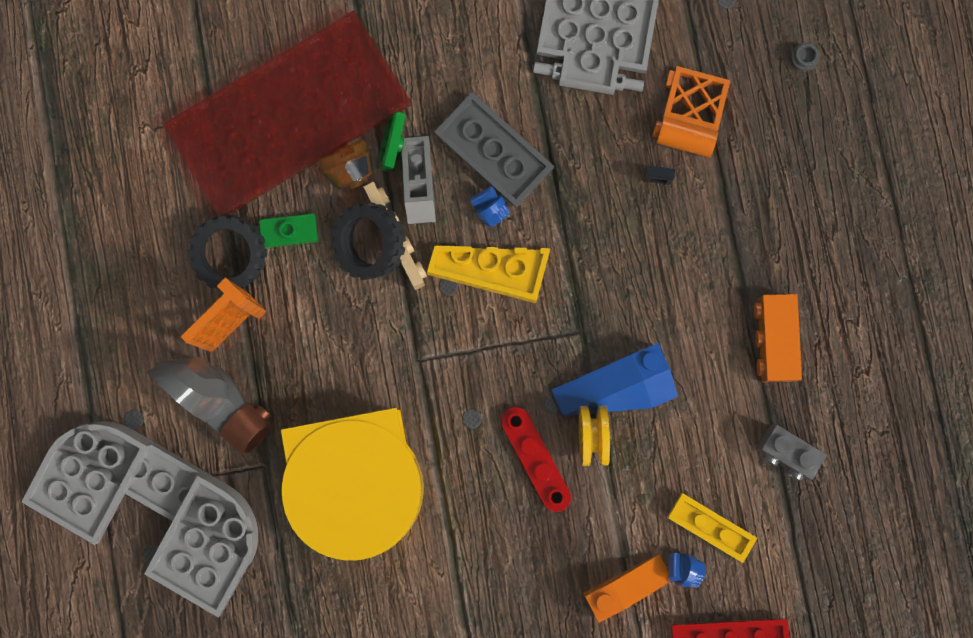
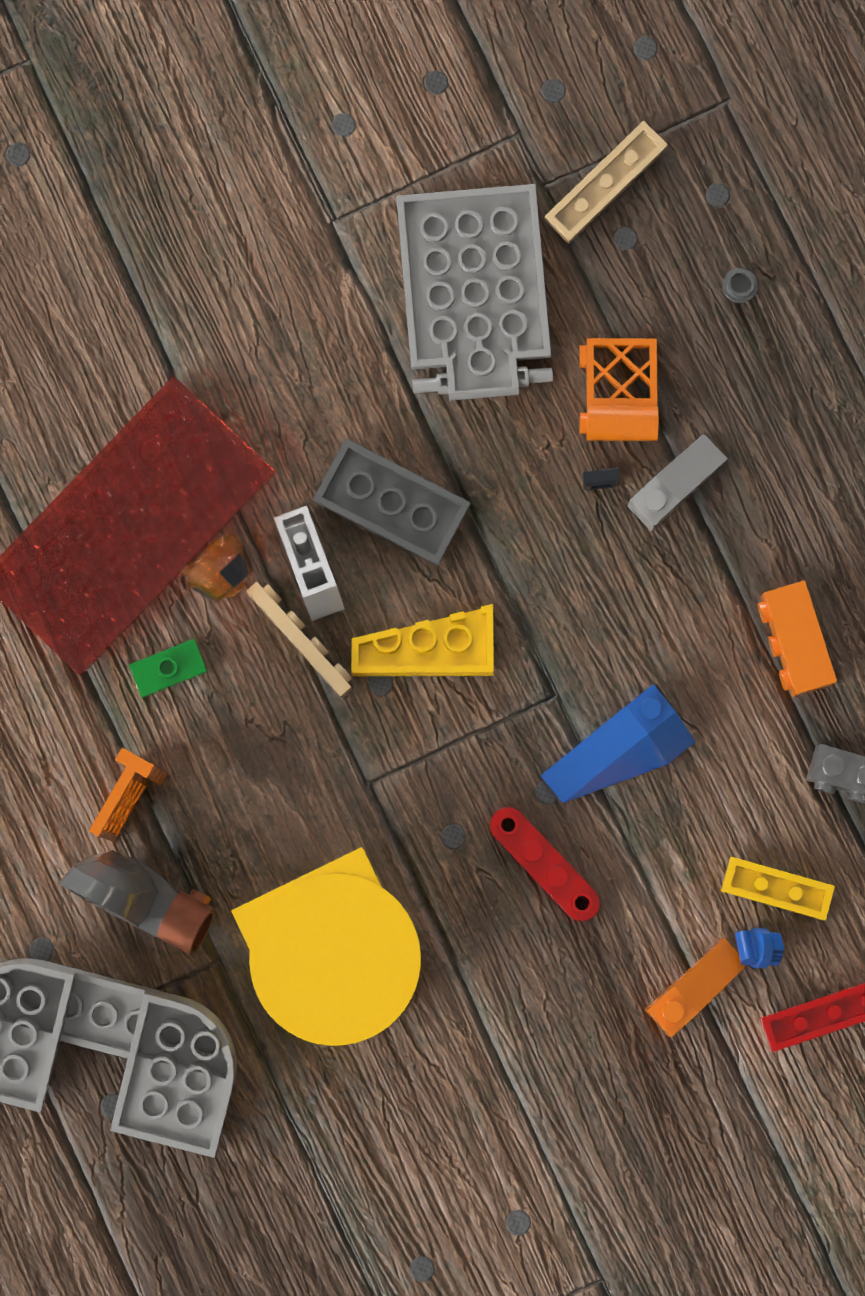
camera: 15 degrees left, 0 degrees up
(230, 222) = (95, 678): black tyre -> none
(343, 241) = (243, 672): black tyre -> none
(391, 142) = (264, 525): green plate -> none
(490, 206) = (406, 573): blue piece -> none
(594, 435) = (606, 816): yellow wheel -> none
(716, 193) = (676, 482): none -> light grey slope

